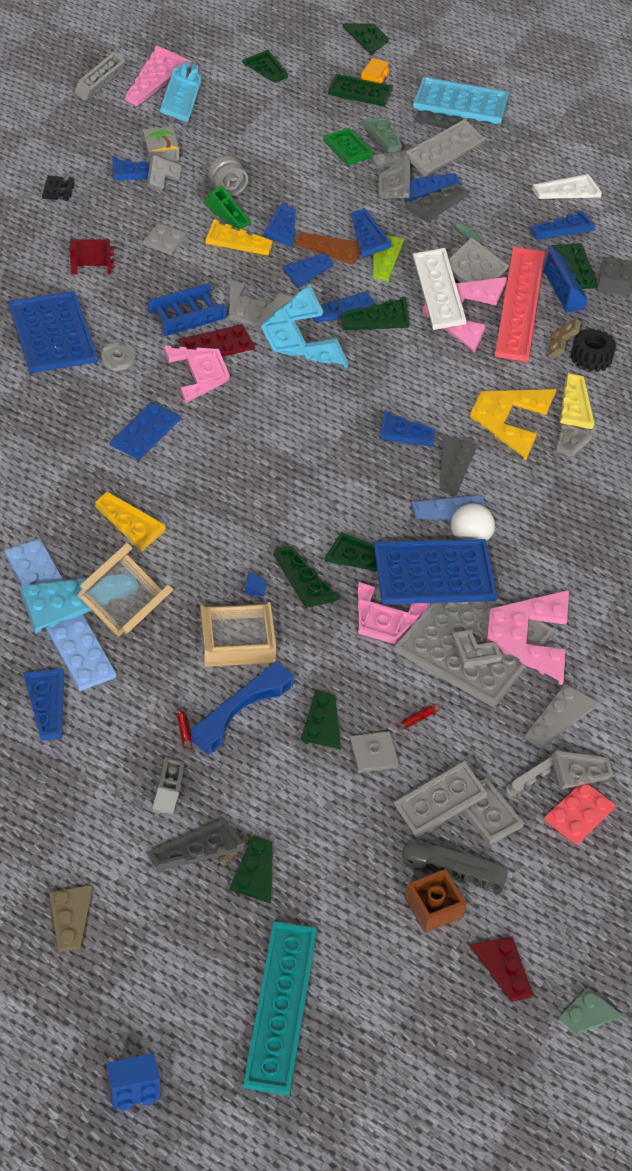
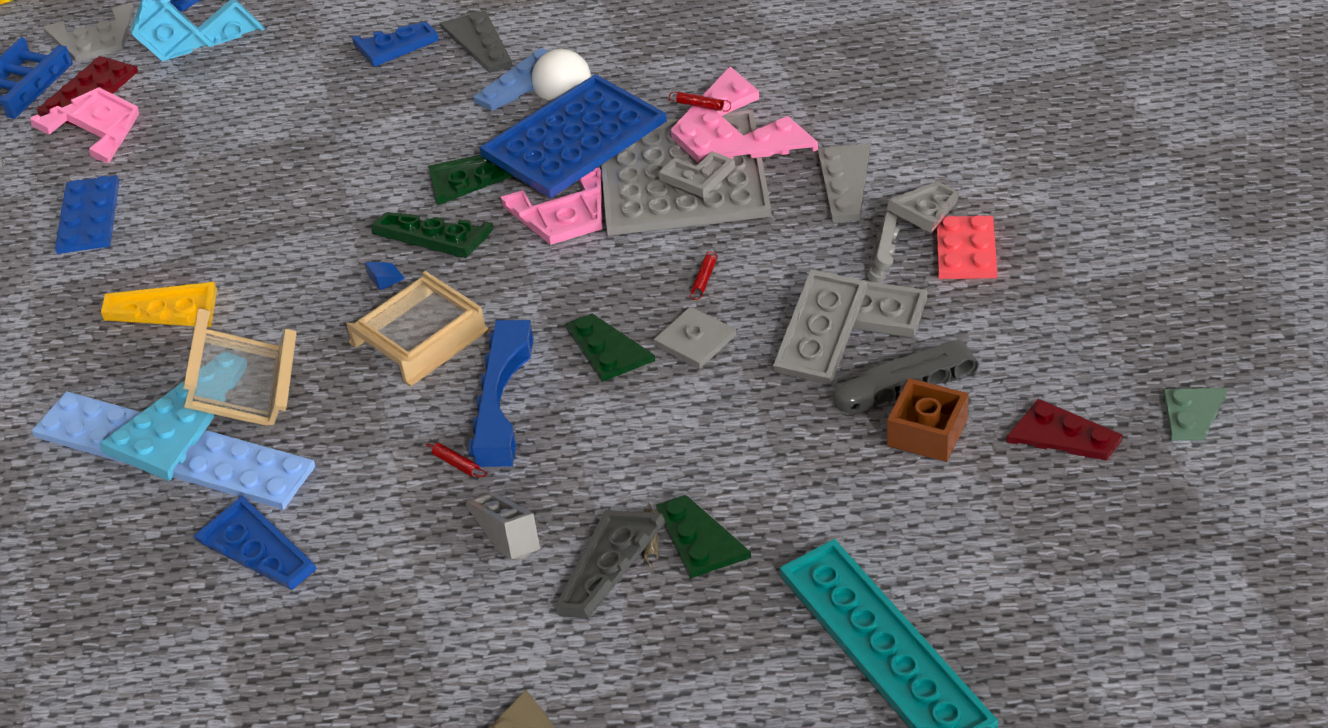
camera: 30 degrees left, 5 degrees down
(523, 602) = (700, 101): none -> red piece

